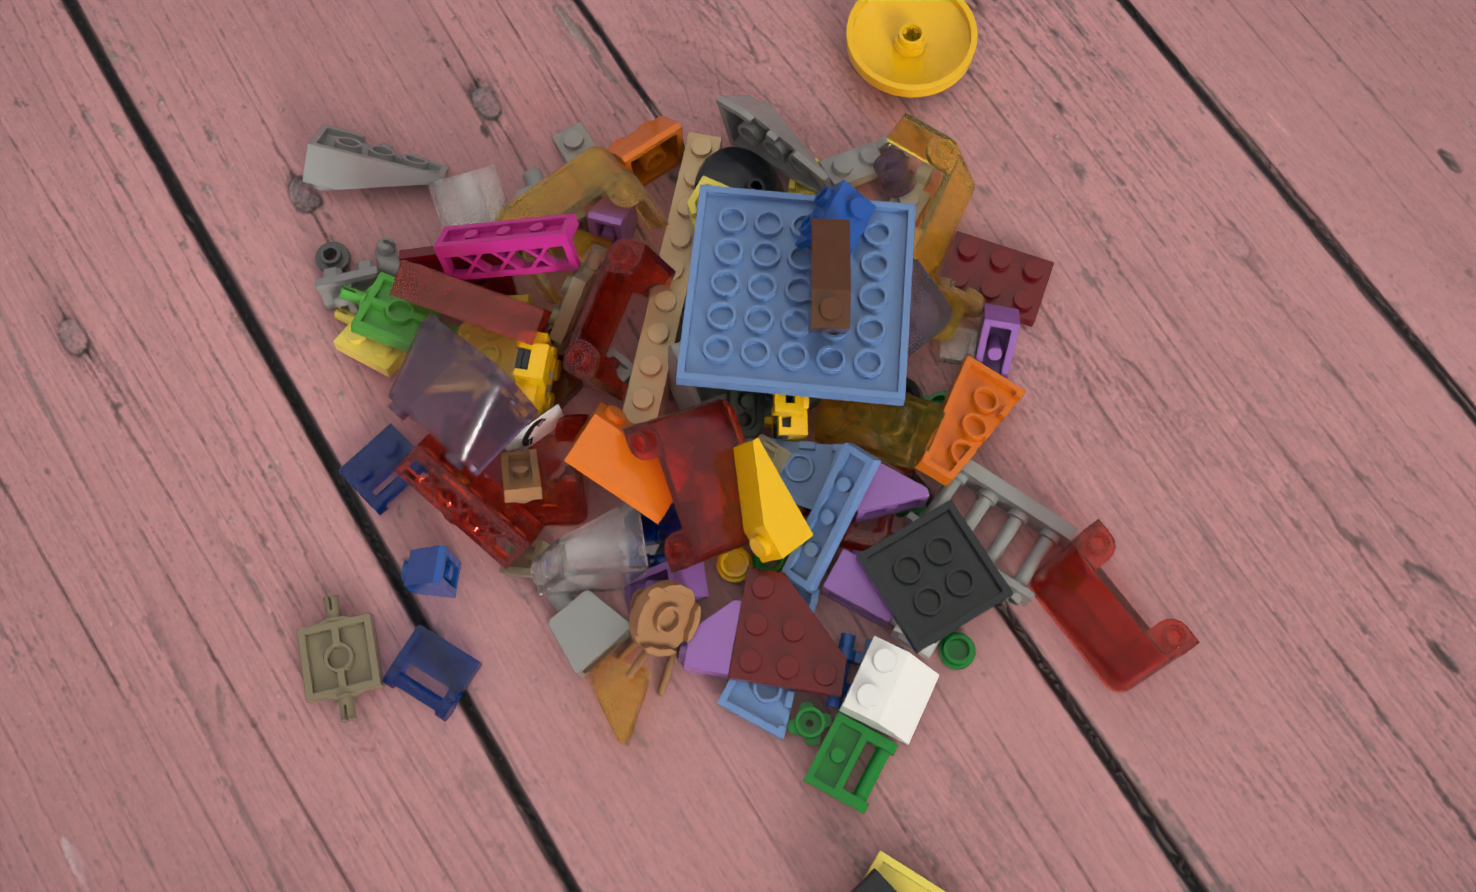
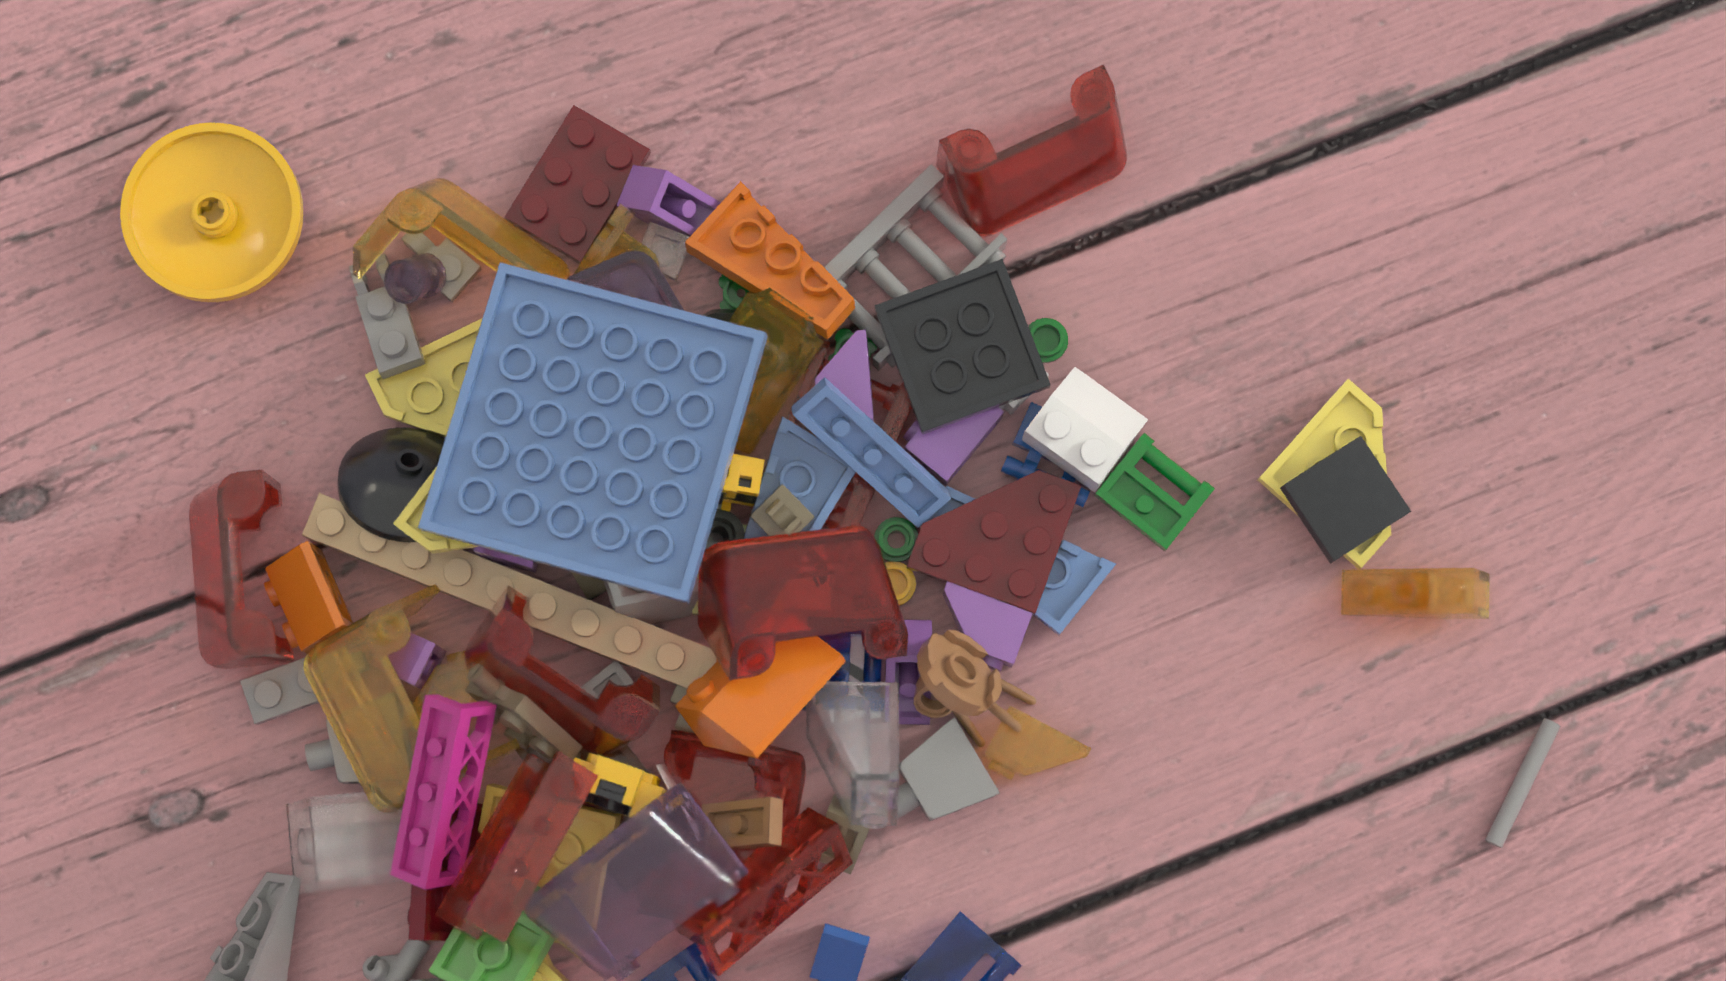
camera: 85 degrees left, 10 degrees up
(656, 91) = (226, 631): none -> clear red windscreen
(761, 130) = (316, 438): light grey wedge -> none
(767, 507) = (850, 525): yellow slope -> none
(820, 722) = (1100, 517): green plate -> none
(830, 276) = (599, 388): reddish brown slope -> none
(838, 202) = (514, 367): blue bracket -> none

